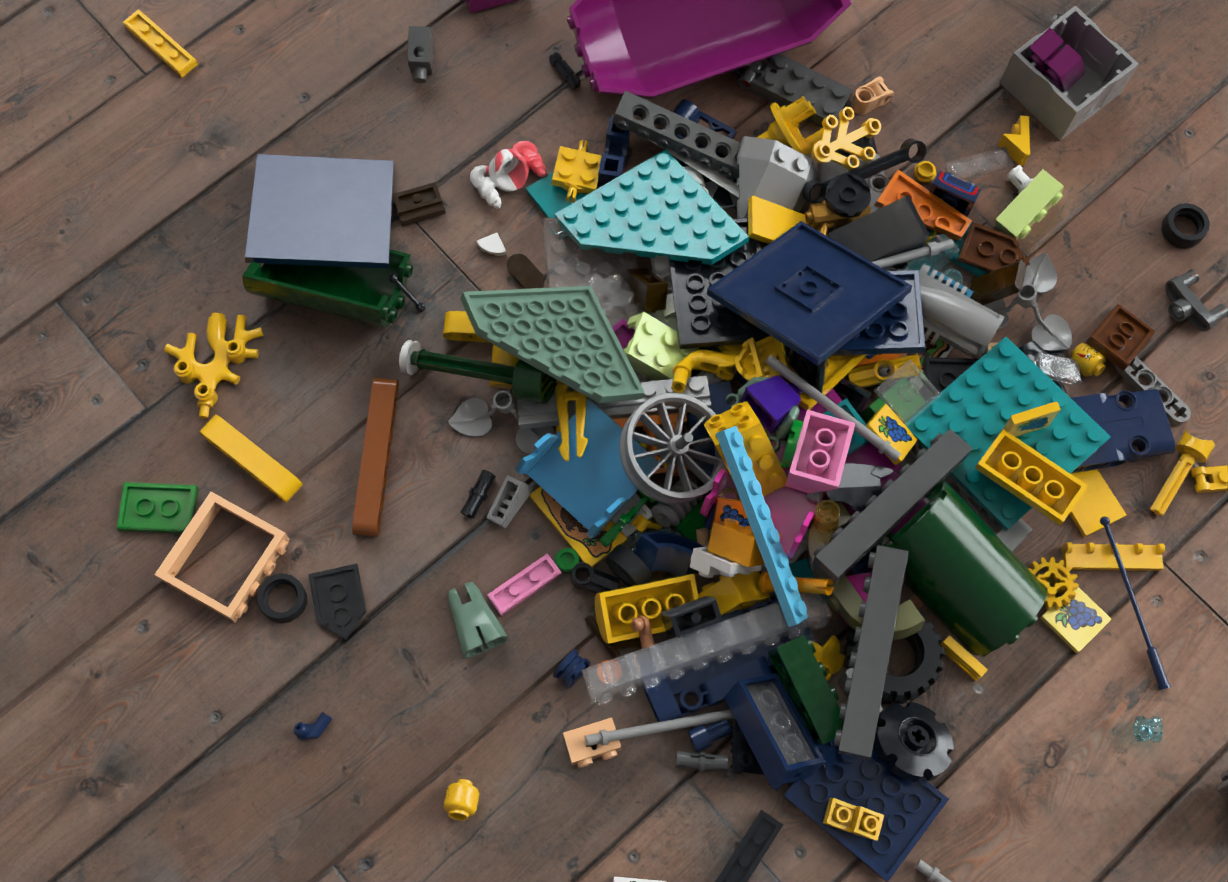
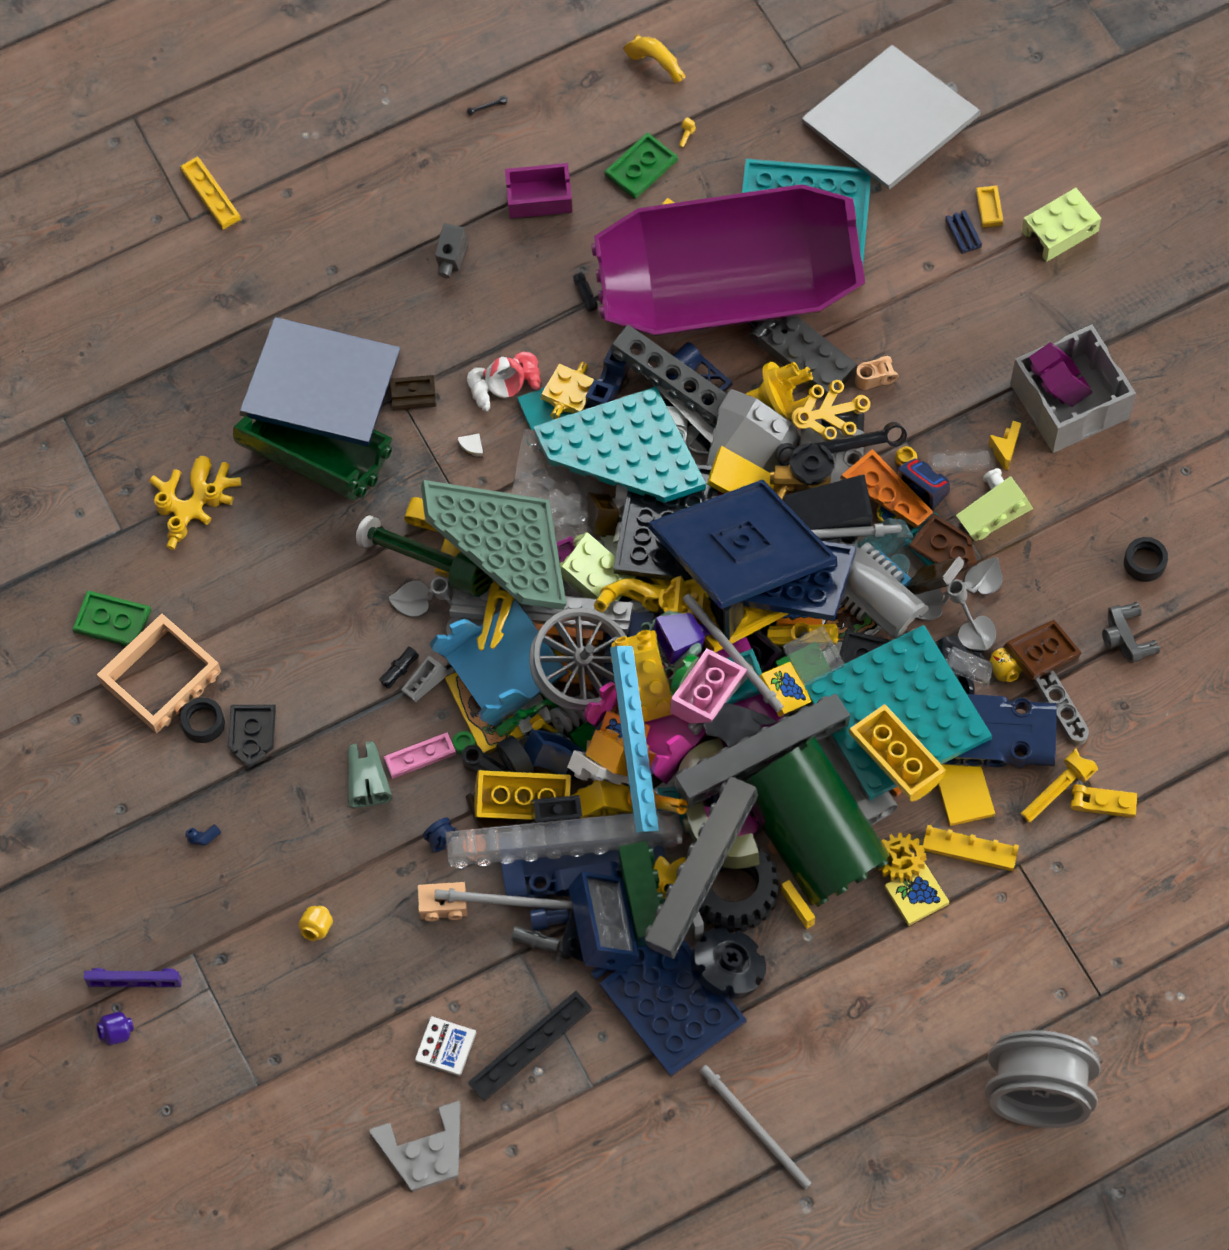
camera: 20 degrees right, 5 degrees down
(251, 458) = (204, 592): yellow beam -> none
(375, 457) = (315, 614): dark orange beam -> none
(420, 307) = (389, 487): black hinge -> none
(524, 272) = (495, 475): dark brown tile -> none
(642, 625) = (511, 810): nougat arm -> none
(825, 511) = (700, 746): clear yellow wheel -> none
(853, 819) = (654, 1015): yellow slope -> none
(1032, 419) = (912, 701): yellow tile -> none
(1148, 729) = (949, 1002): clear light blue wheel -> none
(1151, 651) = (977, 938): dark blue piece -> none

